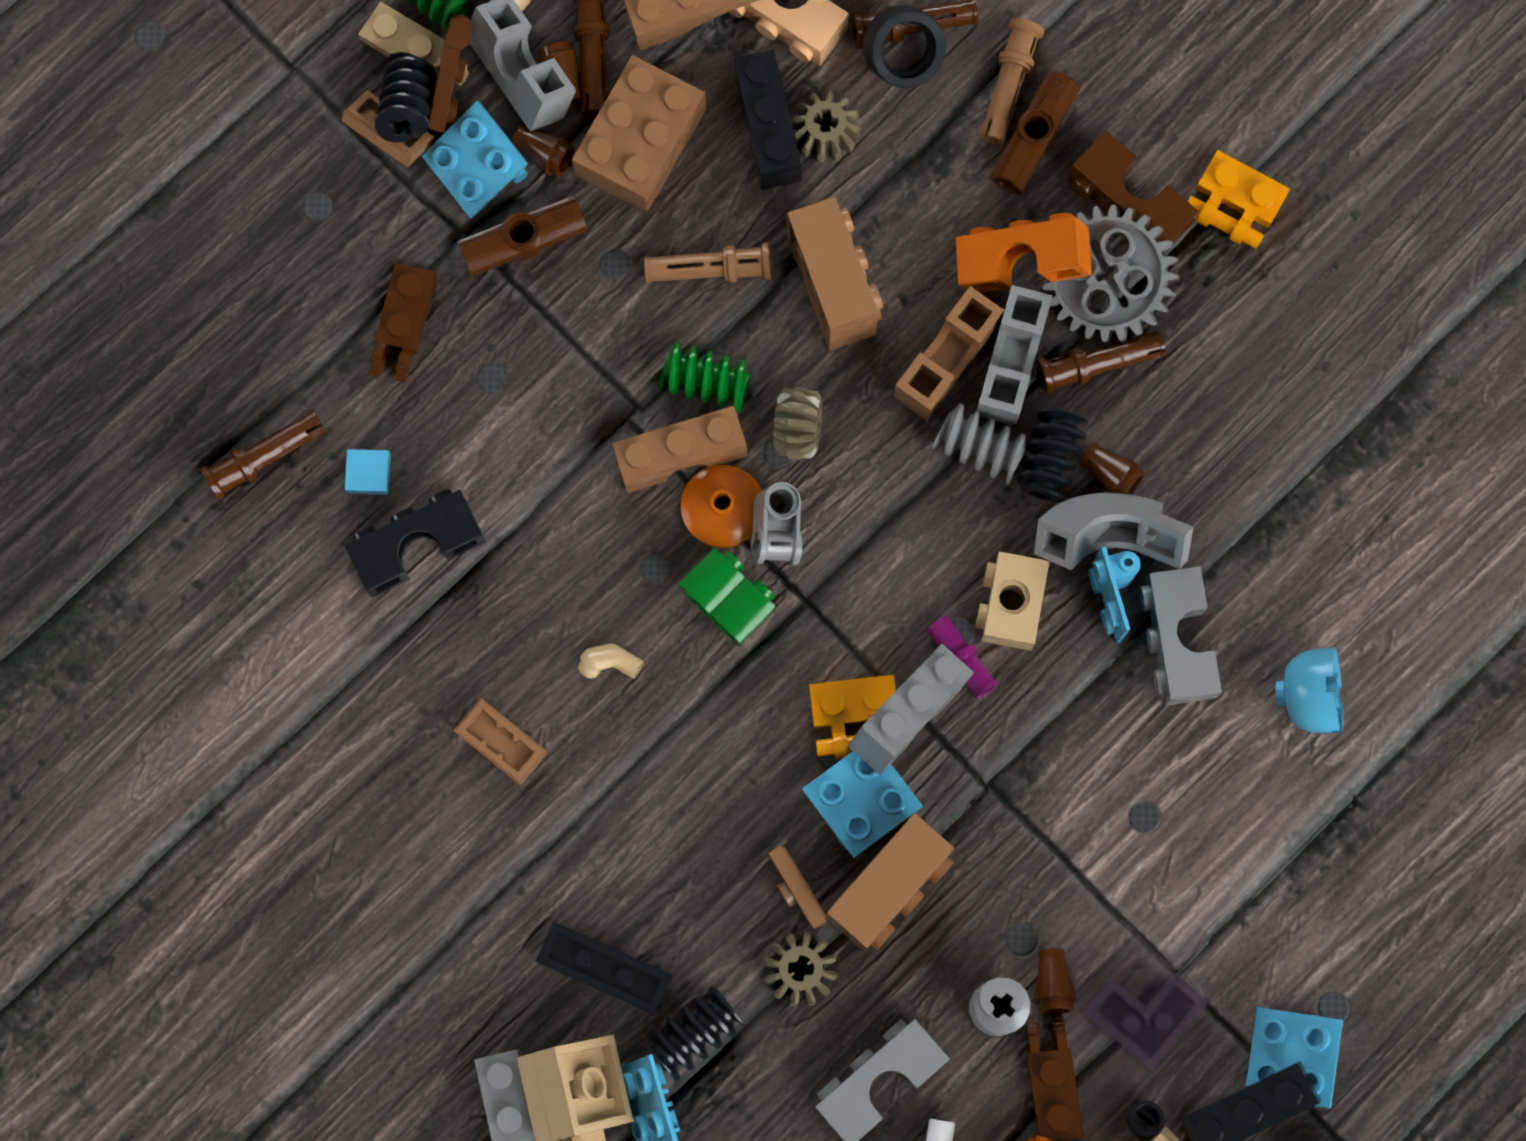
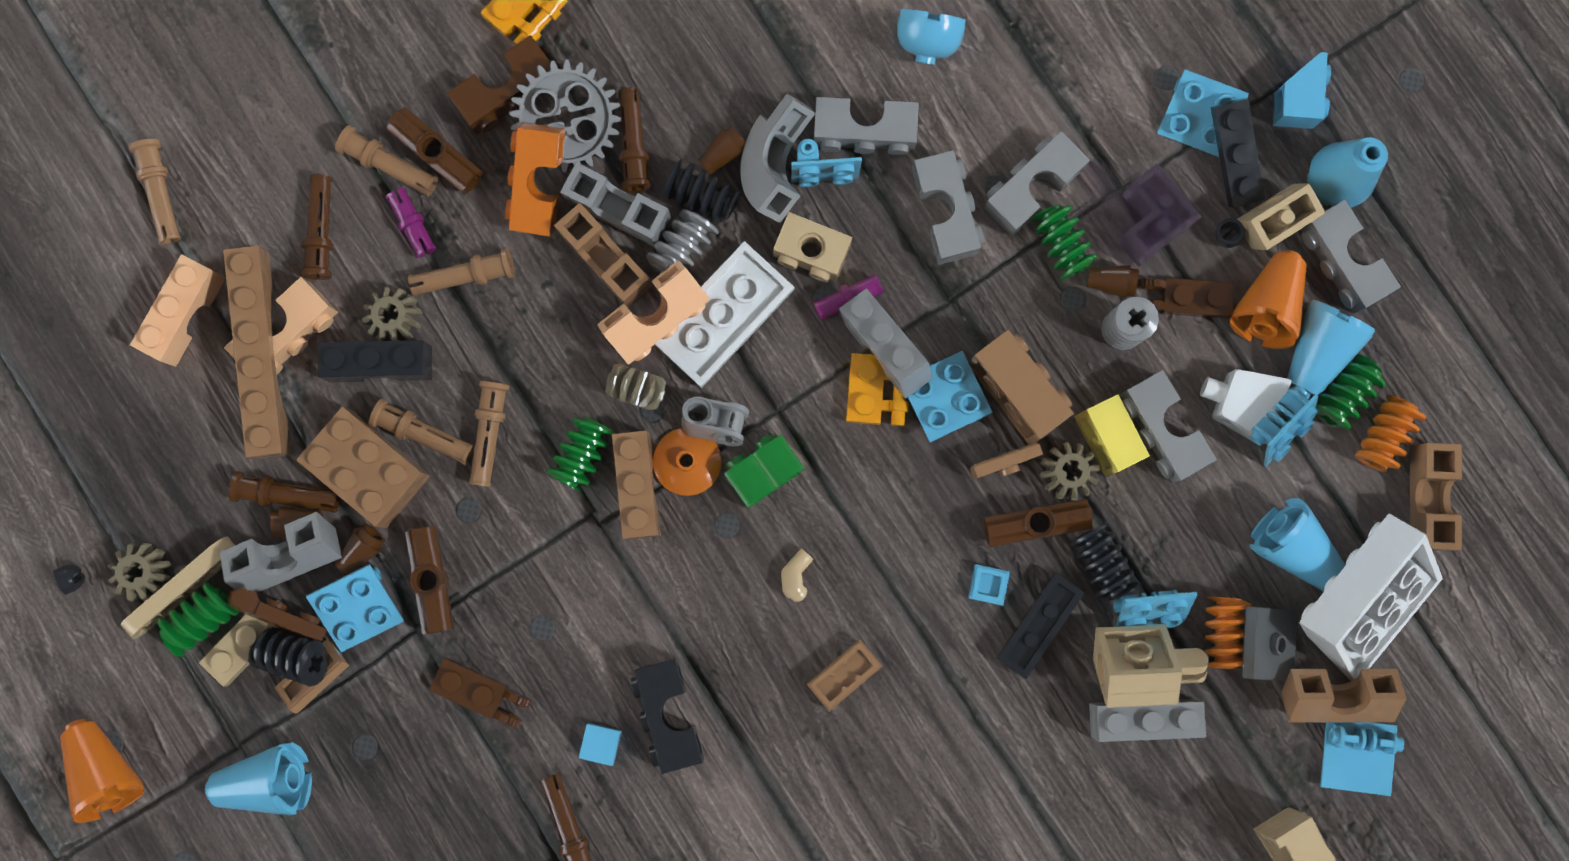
camera: 80 degrees left, 5 degrees up
(257, 102) = (264, 782): none -> medium azure cone
(642, 897) = (988, 584): none -> medium azure tile
(698, 172) = (407, 425): none -> medium nougat pin
(719, 913) = (1059, 520): none -> reddish brown piece
(834, 272) = (517, 332): medium nougat brick -> none
(856, 1015) = (1111, 435): none -> light yellow hinge
(858, 407) = (635, 335): none -> light nougat arch
(901, 213) = (478, 269): none -> medium nougat pin
(908, 510) = (740, 301): none -> white plate
(931, 59) = (355, 221): black tyre -> none
(942, 124) = (410, 222): none -> magenta pin
(1089, 909) = (1064, 239): none -> green piece
(1135, 741) = (942, 178): none -> light grey arch
(1189, 878) = (1056, 162): none -> light grey arch

